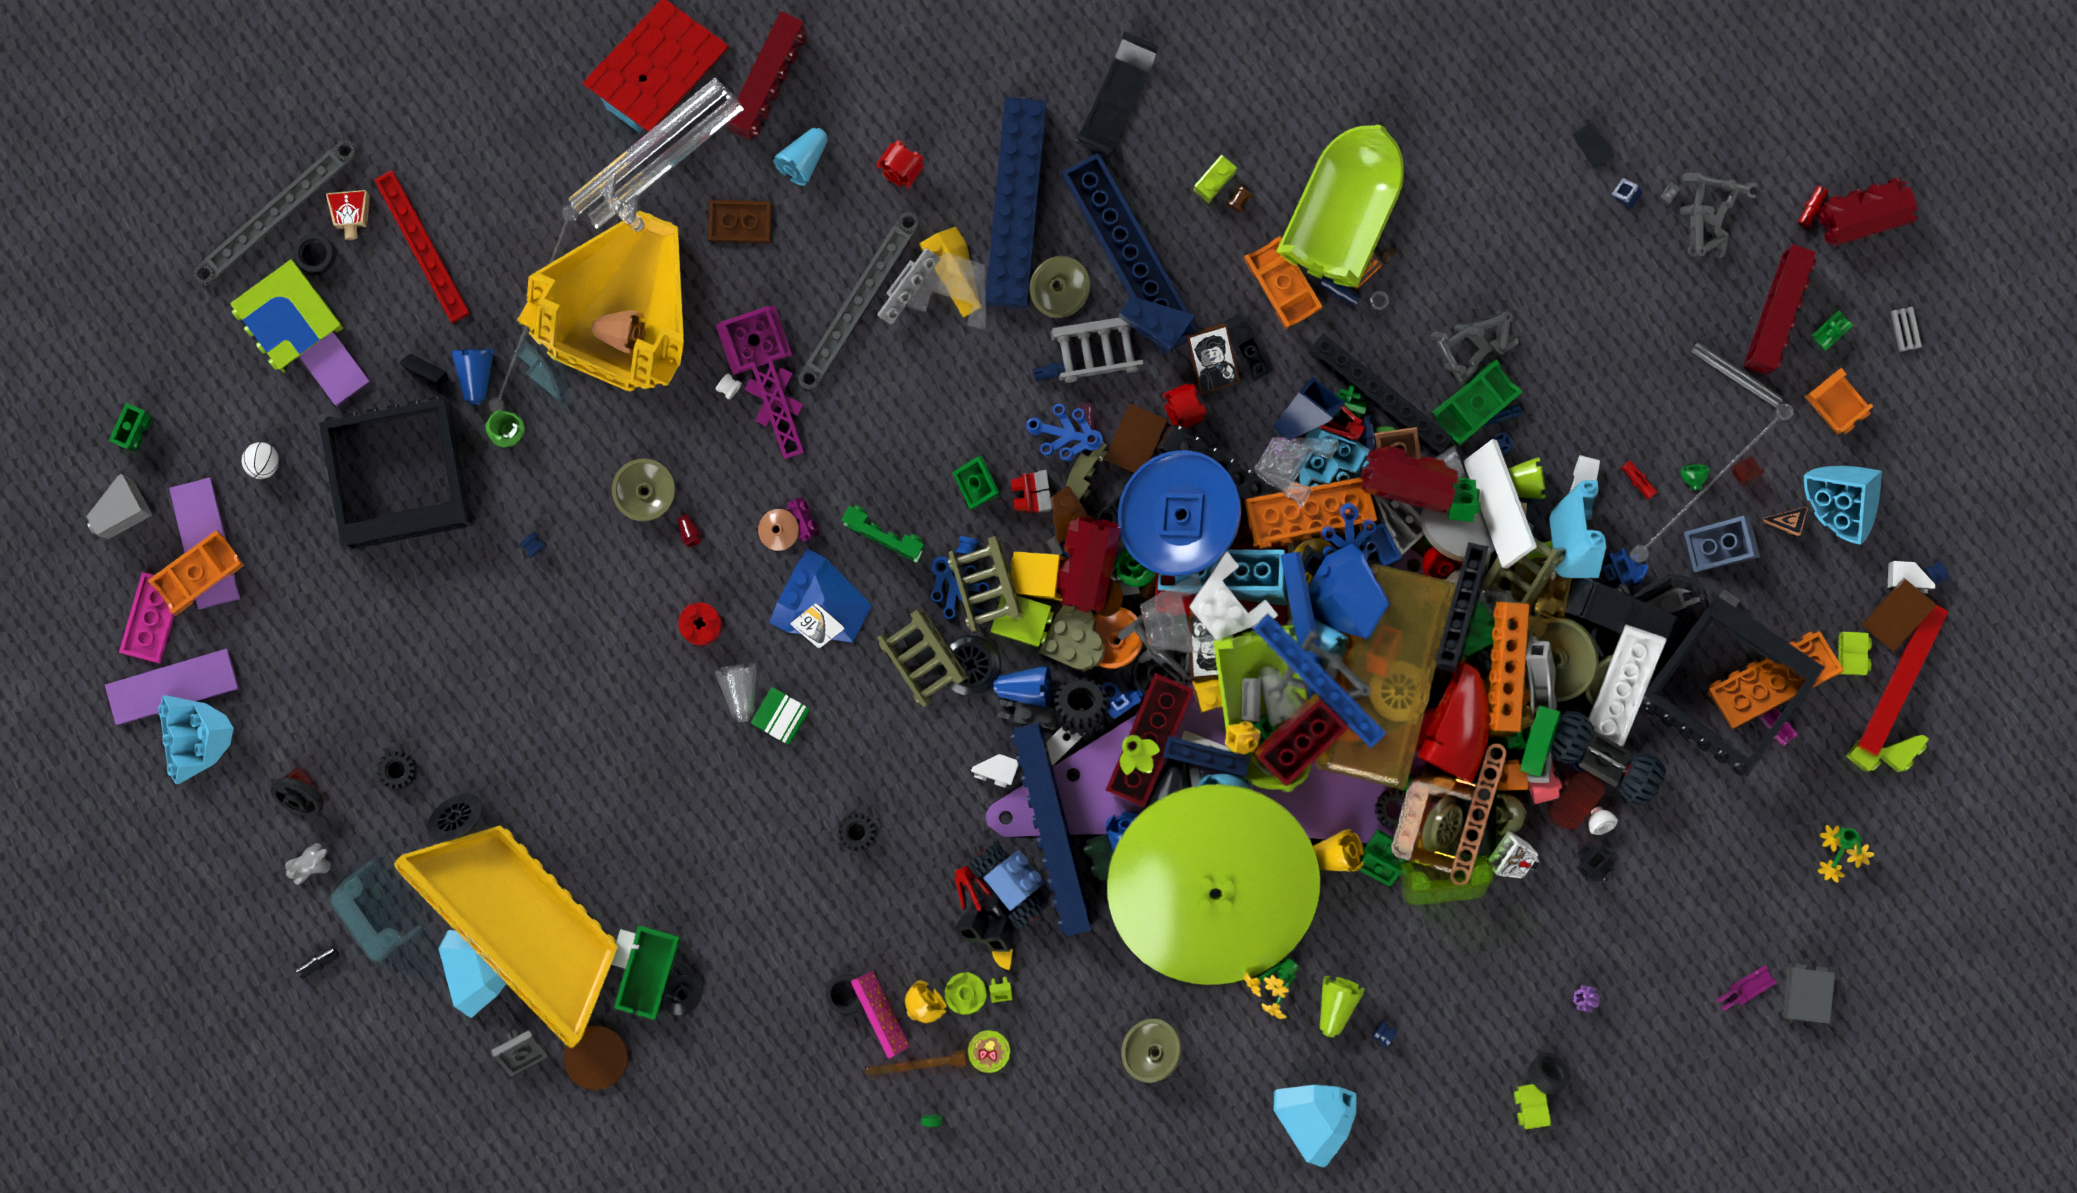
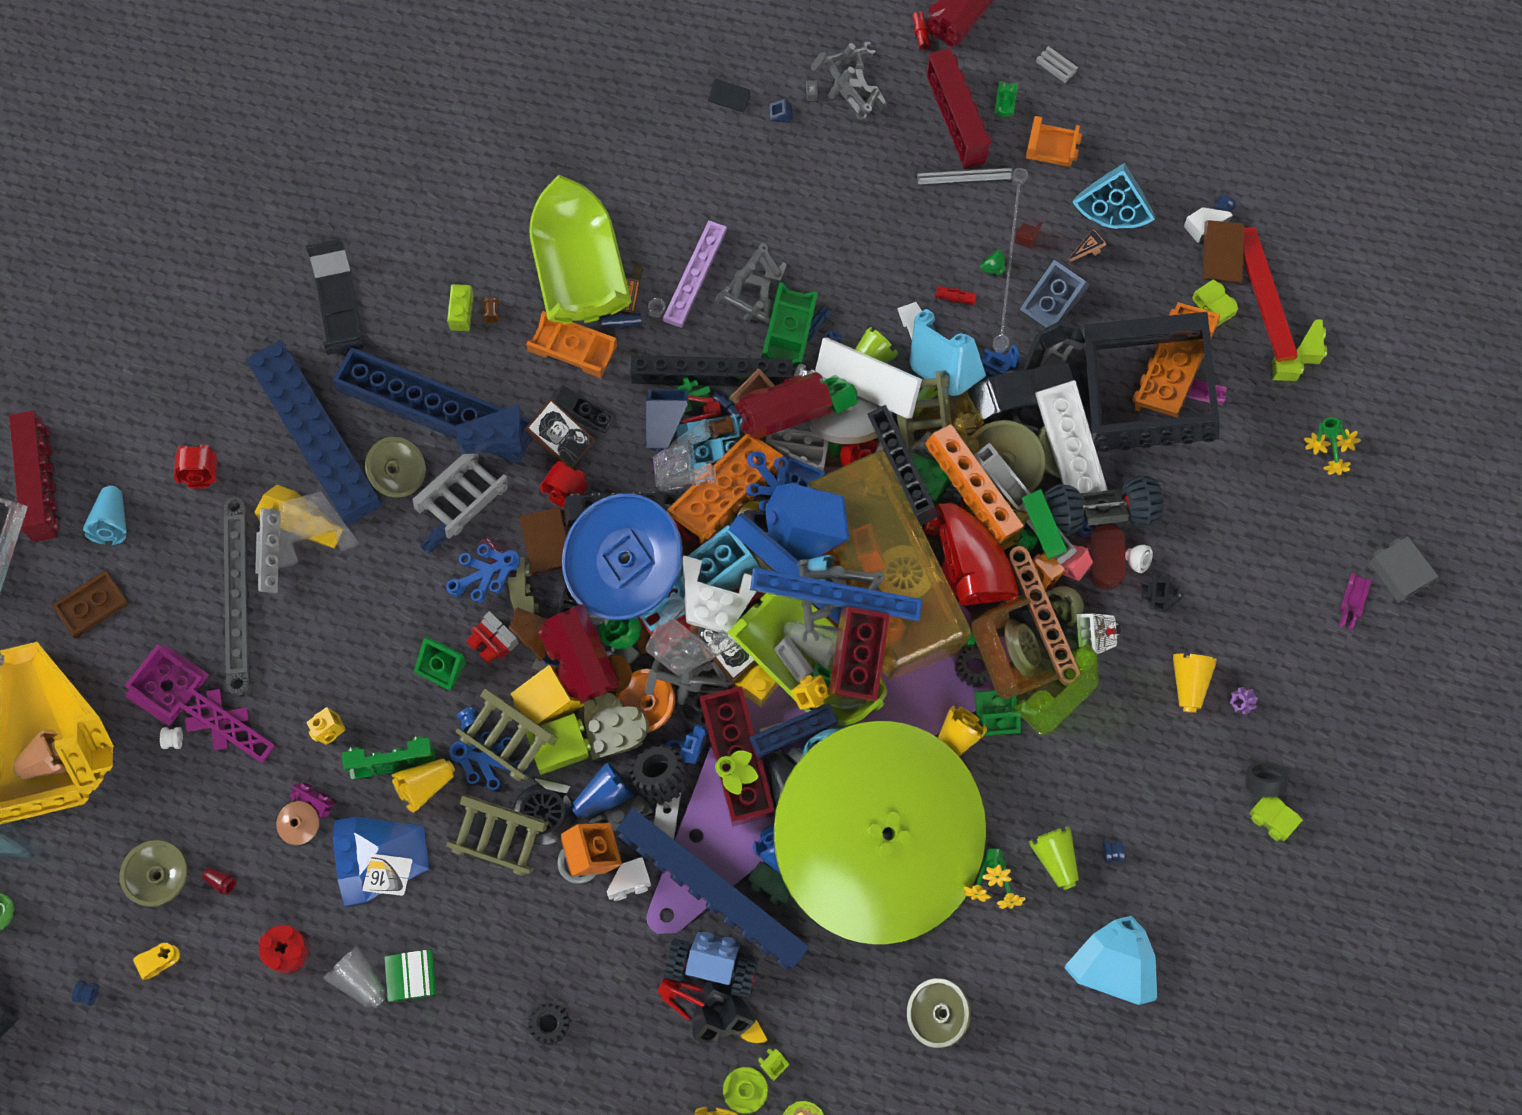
camera: 35 degrees left, 15 degrees down
(598, 559) = (153, 961): none -> yellow piece
(852, 468) = (325, 726): none -> yellow brick
(895, 571) = (422, 782): none -> yellow cone
(980, 727) = (588, 852): none -> orange piece
(993, 650) = (553, 786): none -> white sticker
(1347, 455) = (721, 426): none -> reddish brown bush
(1434, 293) = (695, 274): none -> lavender plate
(1559, 951) = (1192, 679): none -> yellow cone

